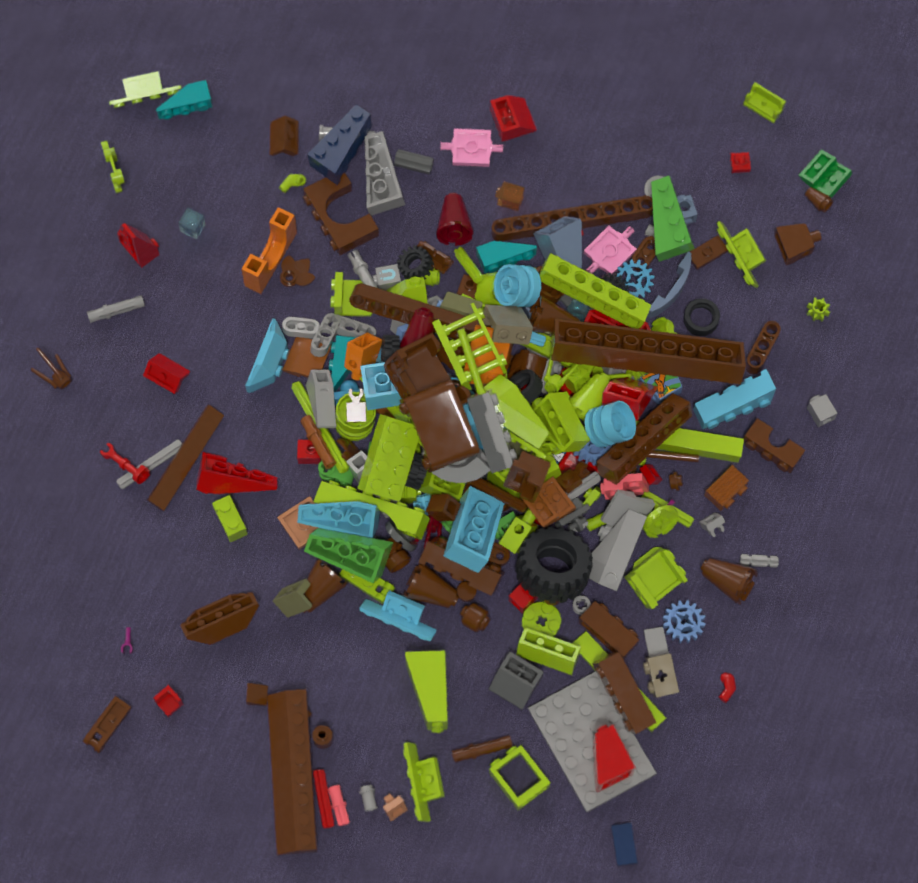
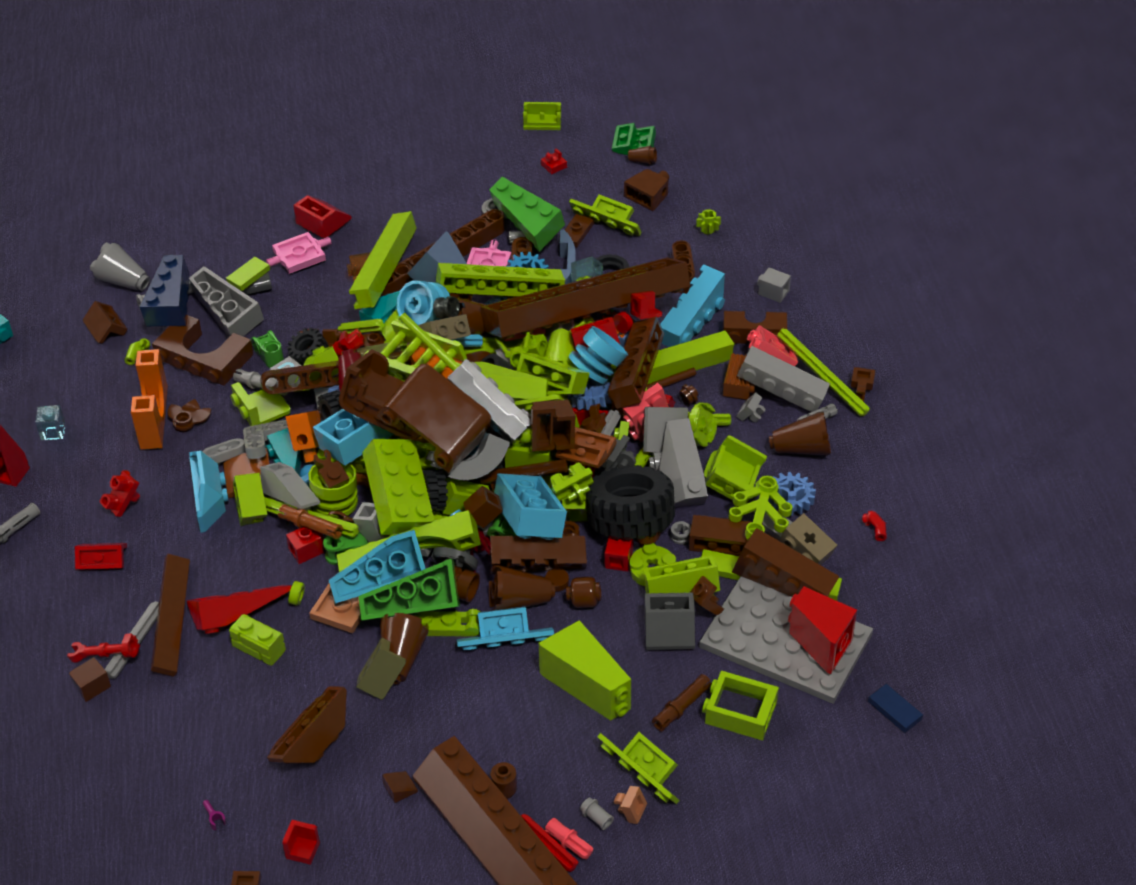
camera: 30 degrees left, 25 degrees down
(103, 483) = (90, 679): none -> reddish brown panel
(205, 327) = (122, 492): none -> red hips
(279, 493) = (296, 593): none -> lime tile
(292, 388) = (249, 498): none -> lime hinge
(322, 88) = (119, 268): none -> light grey cone
(390, 239) = (268, 348): none -> bright green piece
(414, 155) = (248, 273): none -> lime tile
(446, 281) = (348, 341): none -> red hips
(454, 221) = (324, 306): dark red cone -> none
(505, 530) = (574, 486): none -> lime hips
(525, 205) = (383, 260): none -> lime tile
(527, 305) = (446, 307): none -> pearl dark grey wheel
(554, 678) = (704, 595): none -> reddish brown bracket
(648, 626) = (766, 488): none -> lime plant
(666, 386) = (623, 322): none -> red tile
(677, 313) = (586, 267): none -> clear light blue brick
(688, 386) = (644, 305): none -> red panel
(751, 516) = (783, 379): none -> light grey brick
(767, 479) = (771, 344): none -> coral plate
(792, 523) = (823, 372): none -> lime axle
(818, 548) = (862, 380): none -> reddish brown plate

